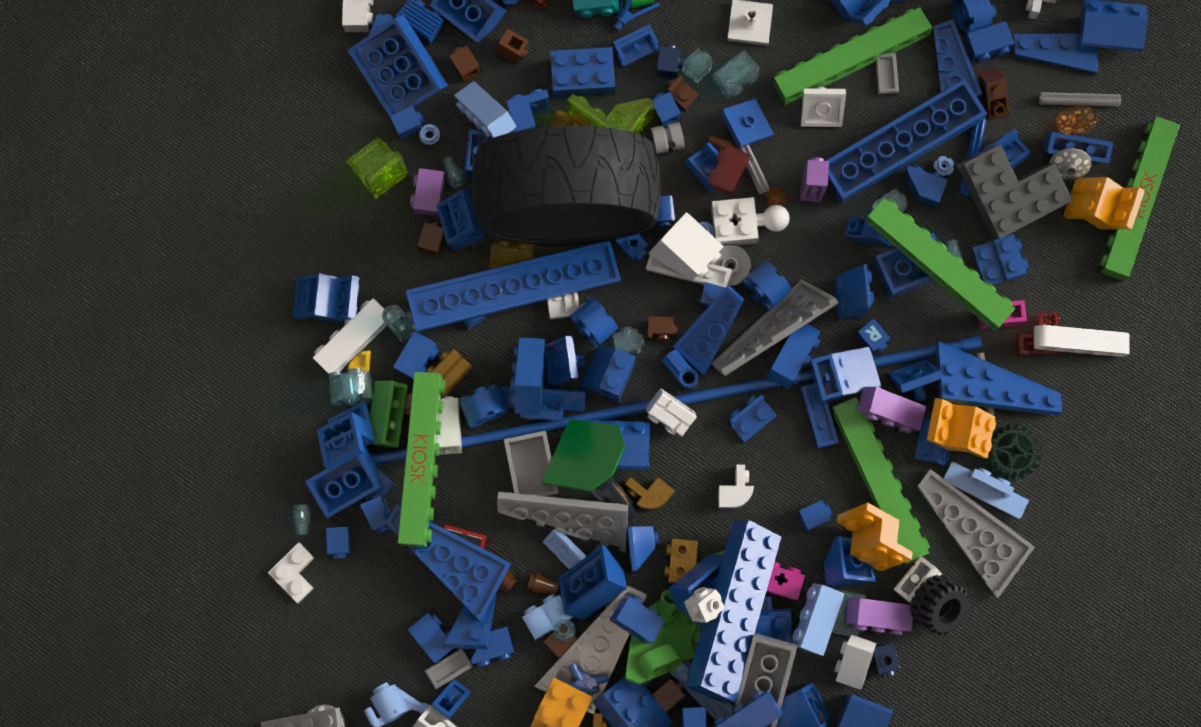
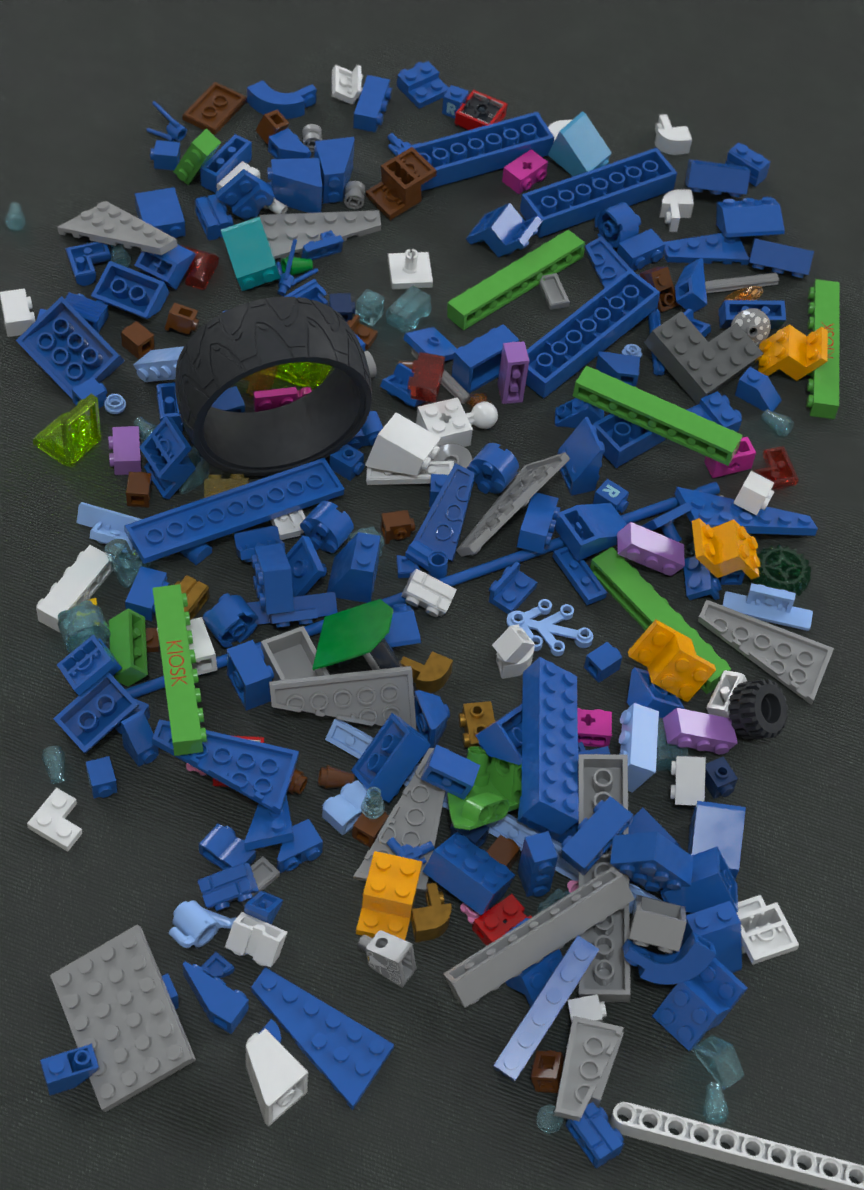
camera: 20 degrees left, 25 degrees down
(326, 298) = (38, 554): blue bracket -> none
(397, 276) = (105, 523): none -> light blue bracket
(423, 678) = (228, 886): none -> blue brick
(487, 468) = (249, 674): none -> blue brick
(528, 323) = (247, 540): none -> blue bracket
(660, 373) = (405, 567): none -> blue tile
(704, 605) = (519, 731): white brick -> none
(730, 494) = (513, 645): none -> white brick
(772, 466) = (547, 628): none -> light blue plant
(792, 153) = (481, 359): none -> blue piece
(823, 107) = (503, 311): white tile -> none
(1010, 366) = (754, 493): none -> white brick
(1027, 96) = (691, 286): none -> blue slope
(1056, 239) = (758, 390): none -> blue slope
(1065, 280) = (779, 423): none -> clear light blue cone
(1081, 340) = (813, 464): white beam -> none
(1132, 76) = (780, 257): none -> blue slope

